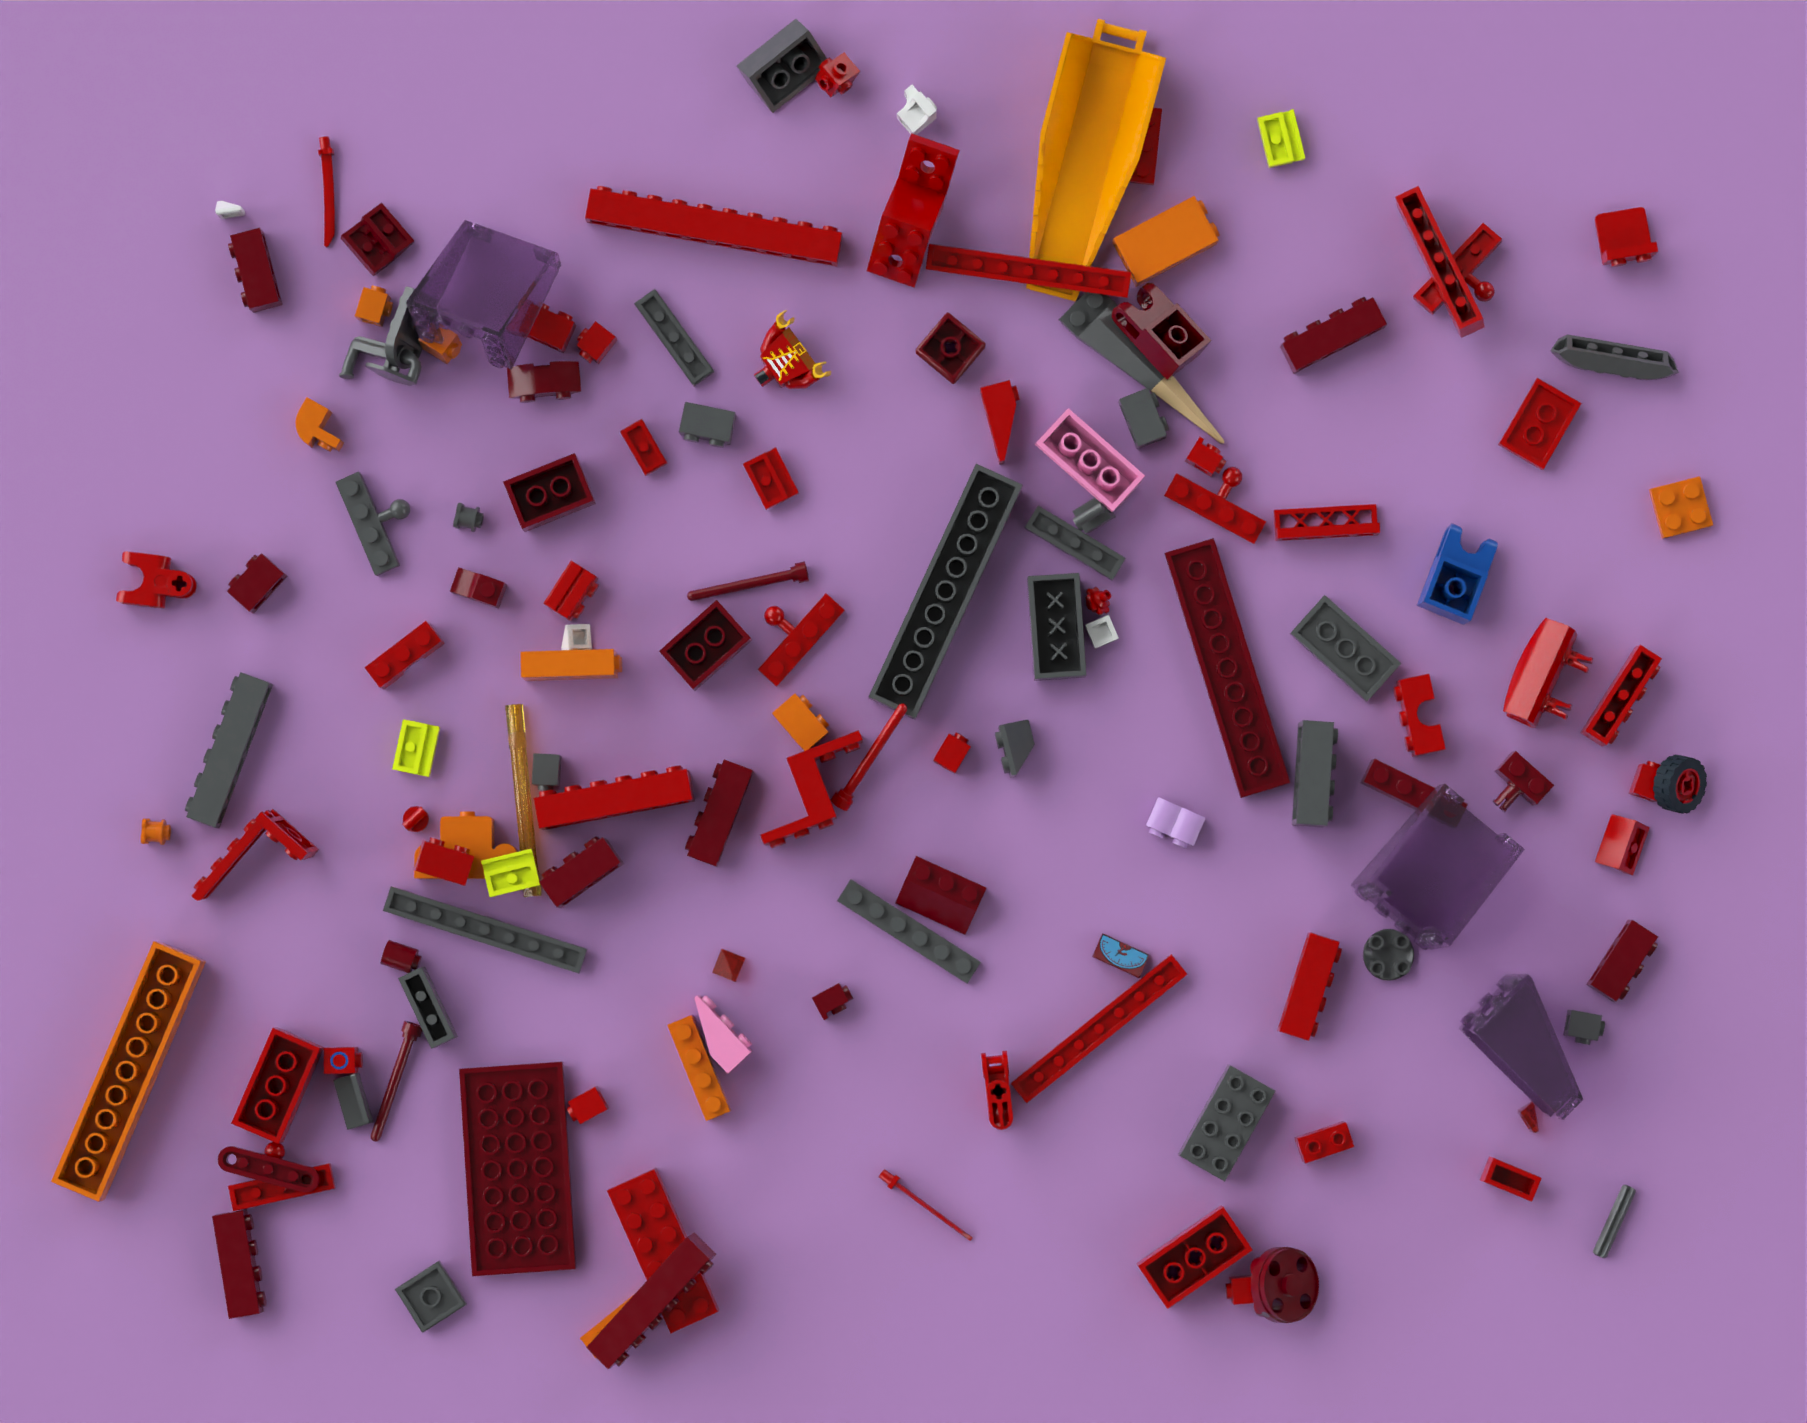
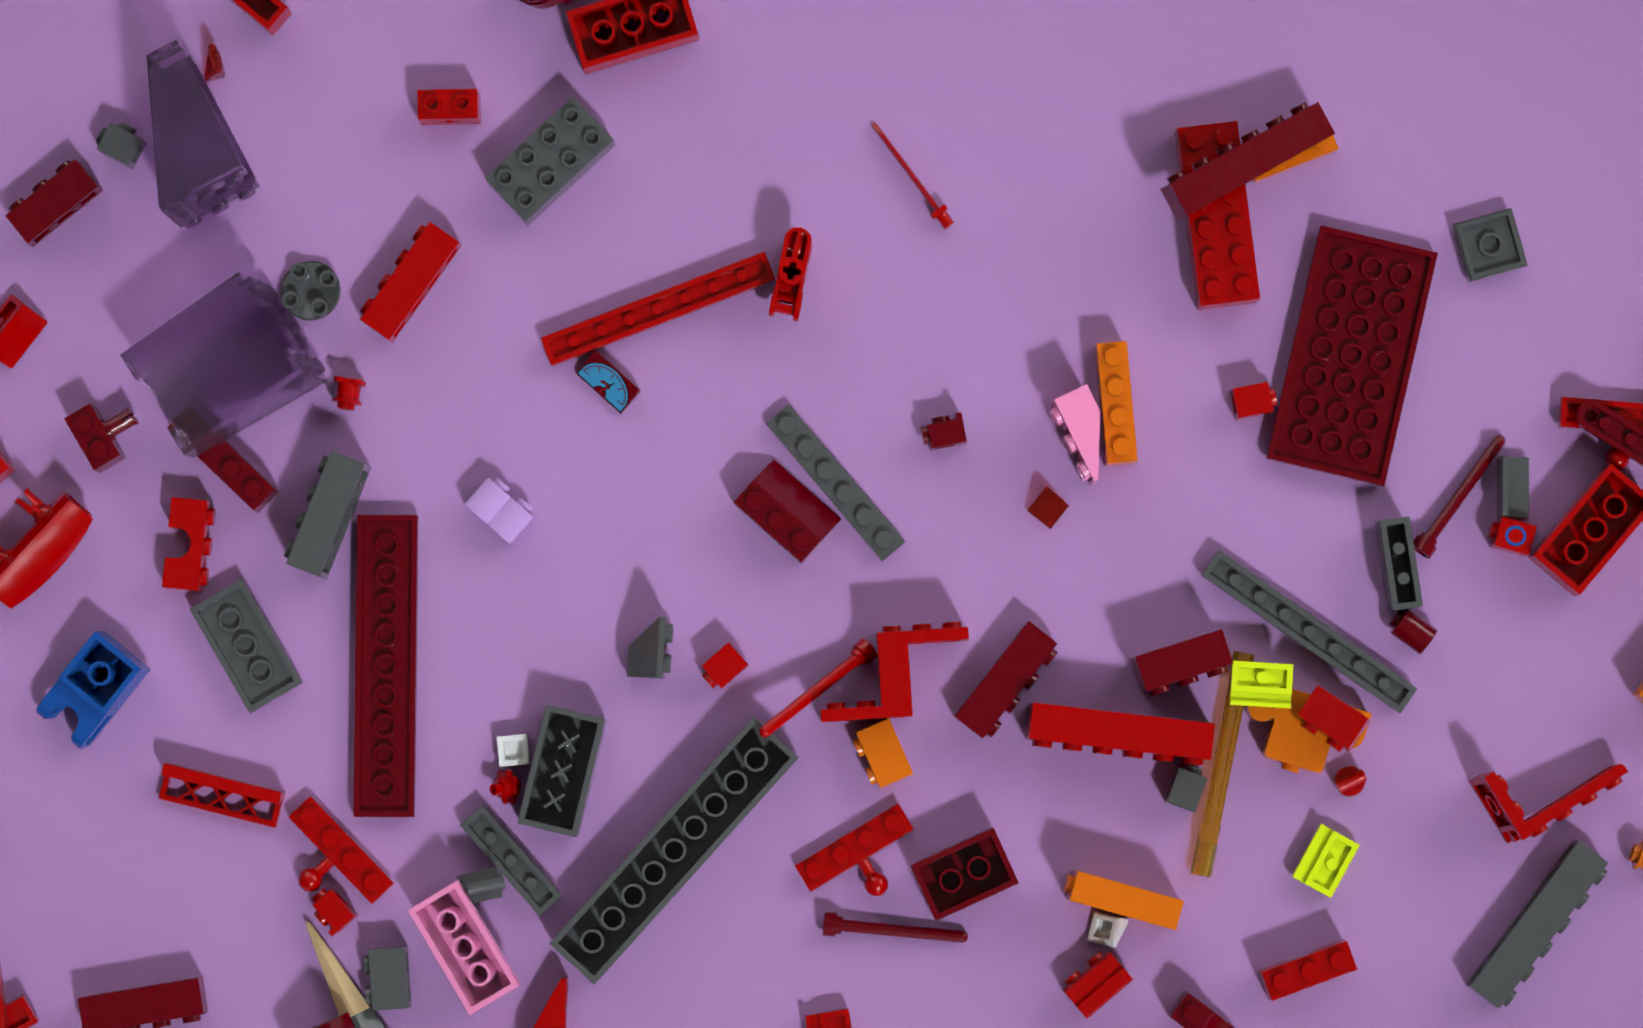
camera: 165 degrees left, 0 degrees up
(1330, 879) = (348, 392): none -> red brick

